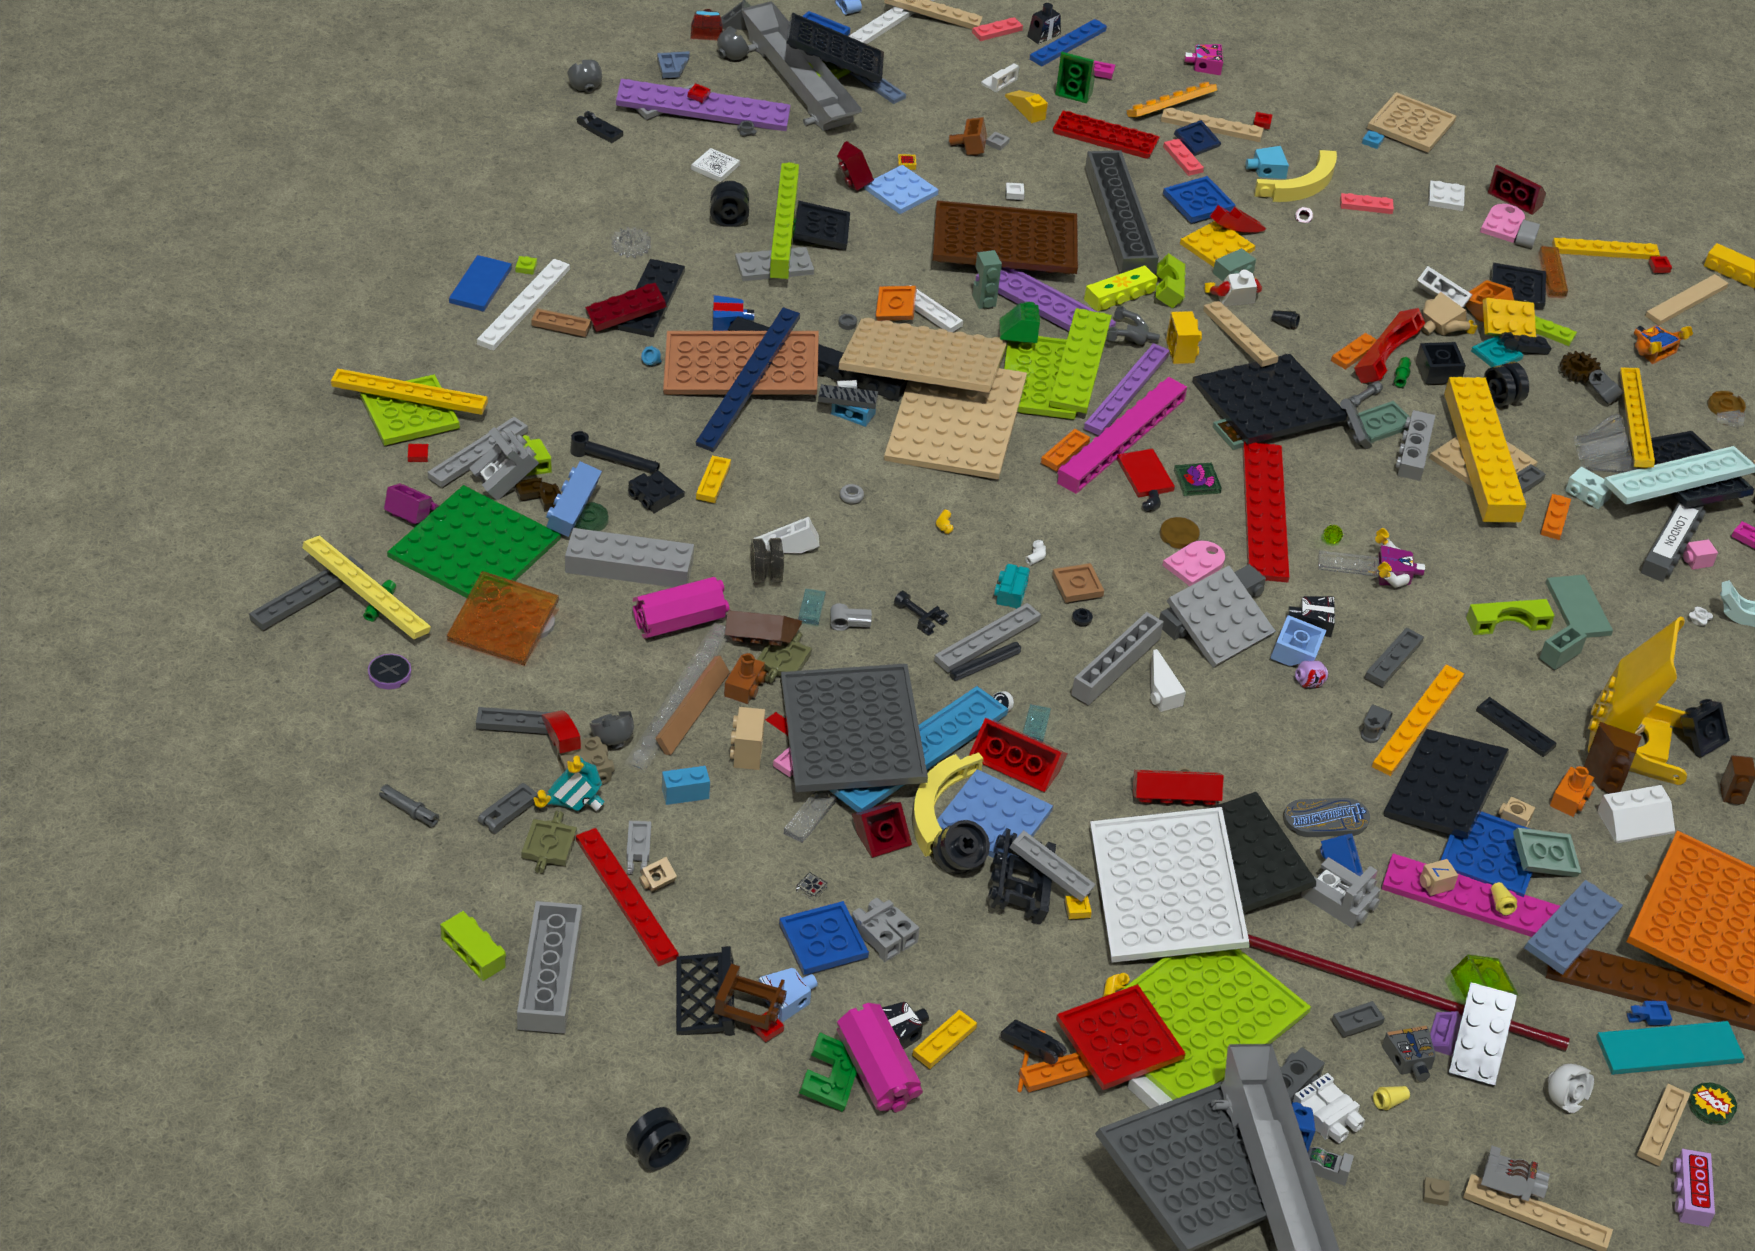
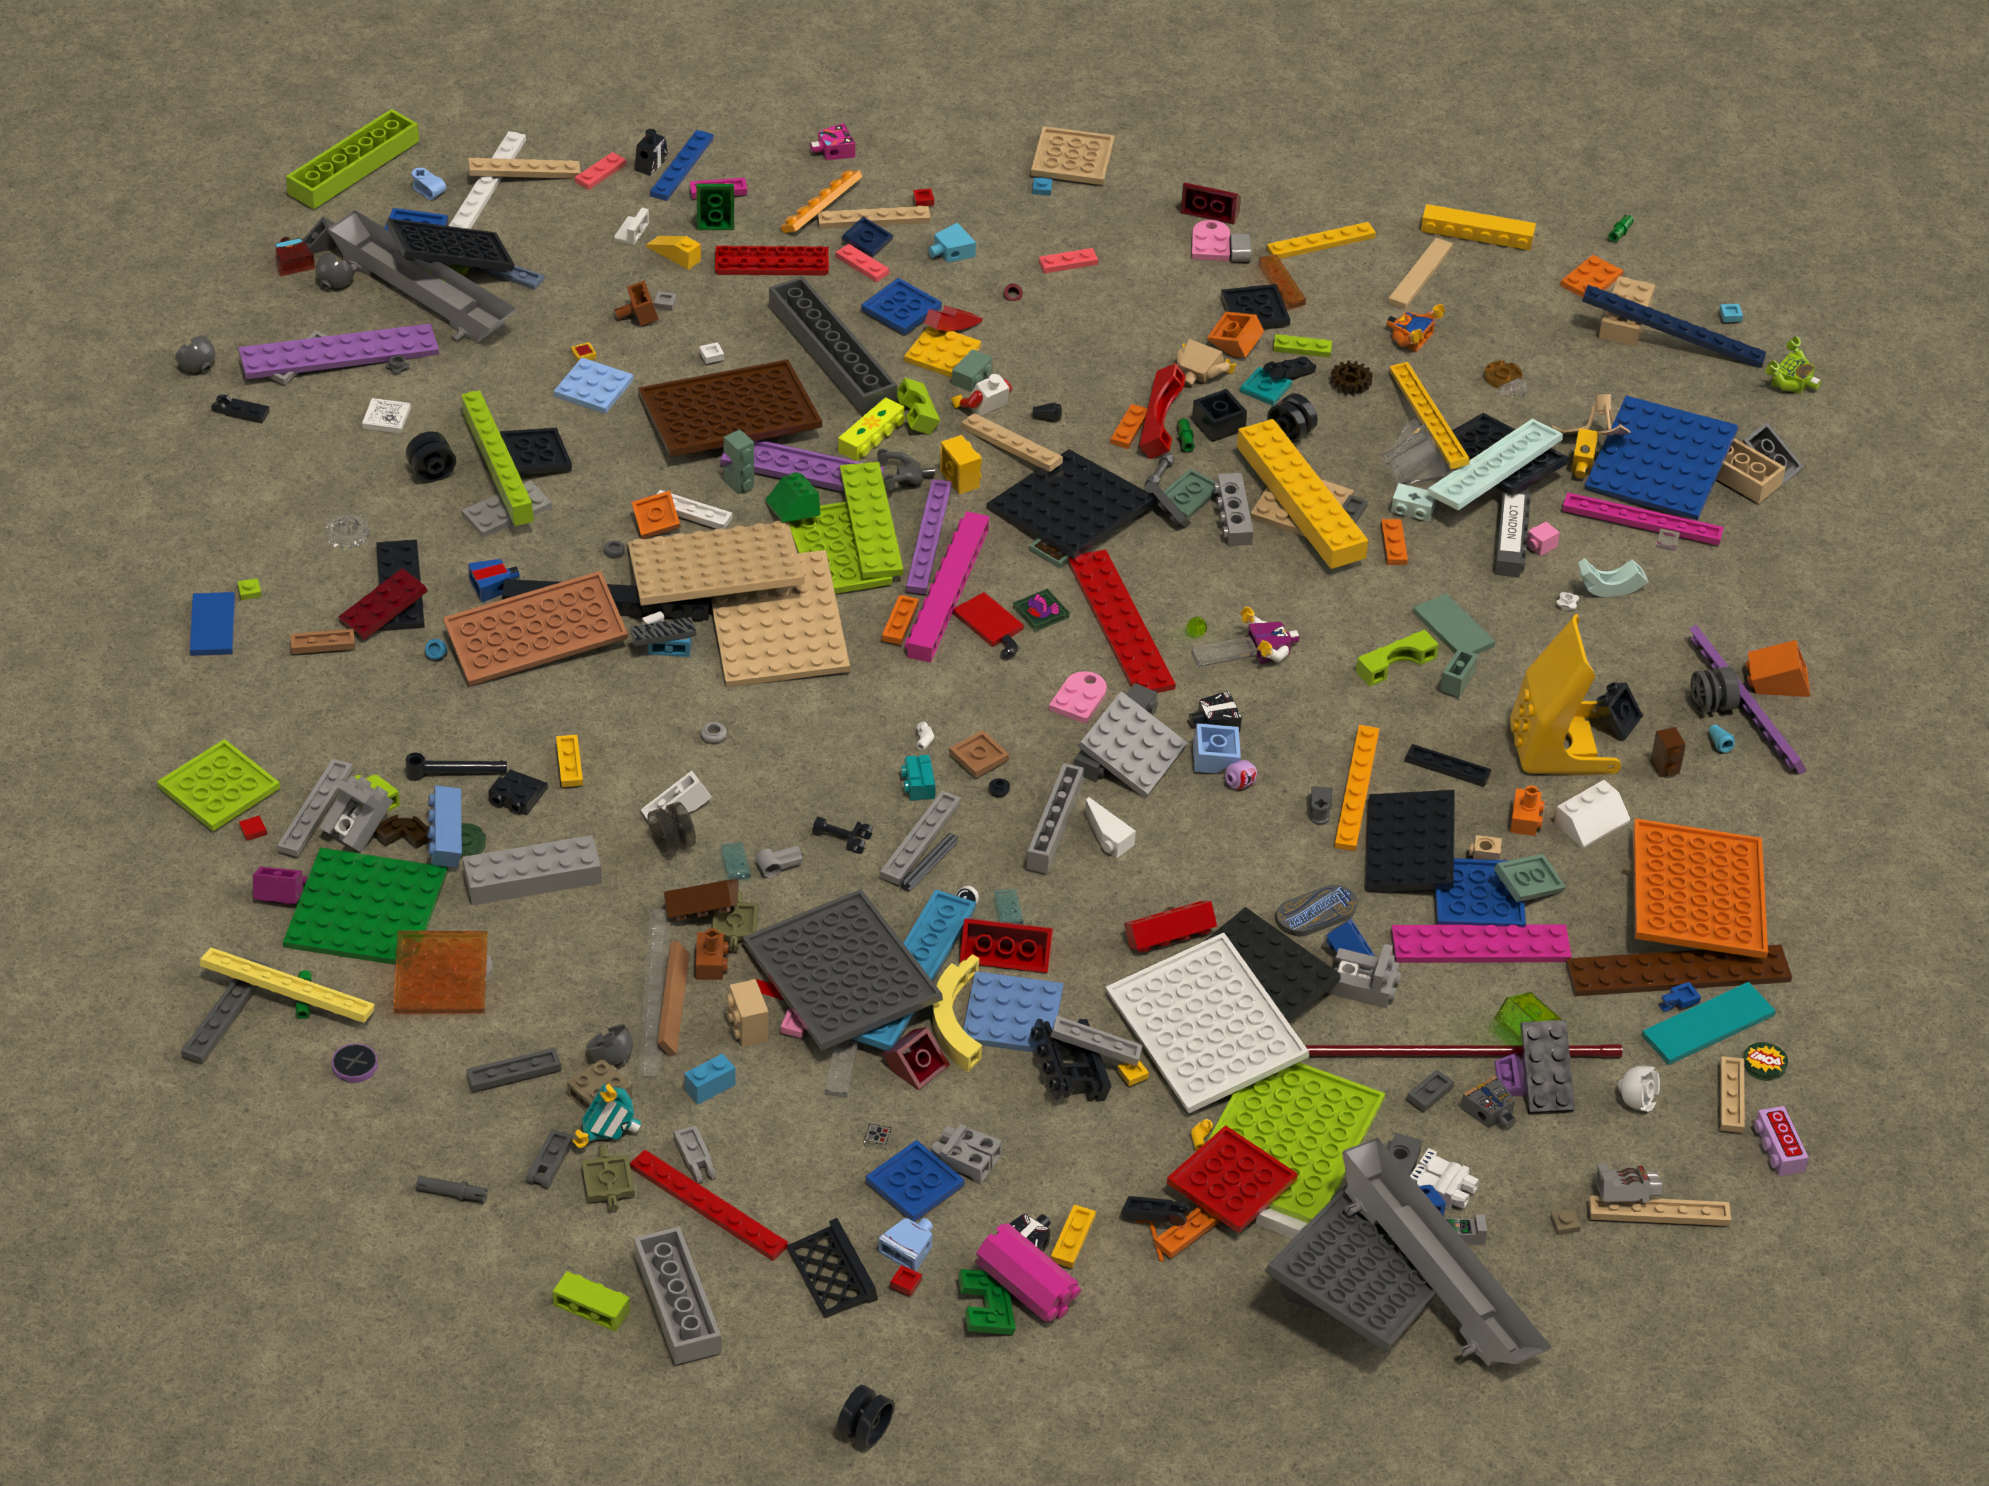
camera: 20 degrees left, 0 degrees up
(409, 391) = (211, 765): yellow plate -> none
(523, 304) = (270, 633): white plate -> none
(562, 731) = (566, 1065): red slope -> none
(662, 869) = (735, 1169): tan brick -> none
(672, 63) = (278, 312): sand blue wing -> none
(680, 606) = (611, 903): dark pink brick -> none
(699, 93) = (331, 339): red tile -> none
(735, 982) = (888, 1248): reddish brown panel -> none
(747, 380) = (553, 644): dark blue plate -> none
(854, 166) = (538, 375): dark red slope -> none
(943, 522) = (819, 734): yellow arm -> none
(961, 847) = (1002, 1051): black wheel -> none
(1179, 532) = (1050, 671): pearl gold tile -> none
(1300, 187) = (996, 262): light yellow arch -> none
(1388, 1097) = (1489, 1151): light yellow cone -> none
(1394, 657) = (1308, 732): dark grey plate -> none
(1434, 283) = (1181, 331): white slope -> none
(1438, 877) = (1445, 933): tan brick -> none
(1446, 195) = (1142, 228): white plate -> none
(1503, 899) = (1511, 935): light yellow cone -> none
(1508, 316) = (1264, 346): yellow plate -> none
(1573, 927) = (1582, 940): sand blue plate -> none
(1605, 386) = (1386, 392): dark grey piece -> none
(1611, 757) = (1550, 767): reddish brown slope -> none
(1660, 264) = (1380, 242): red plate -> none

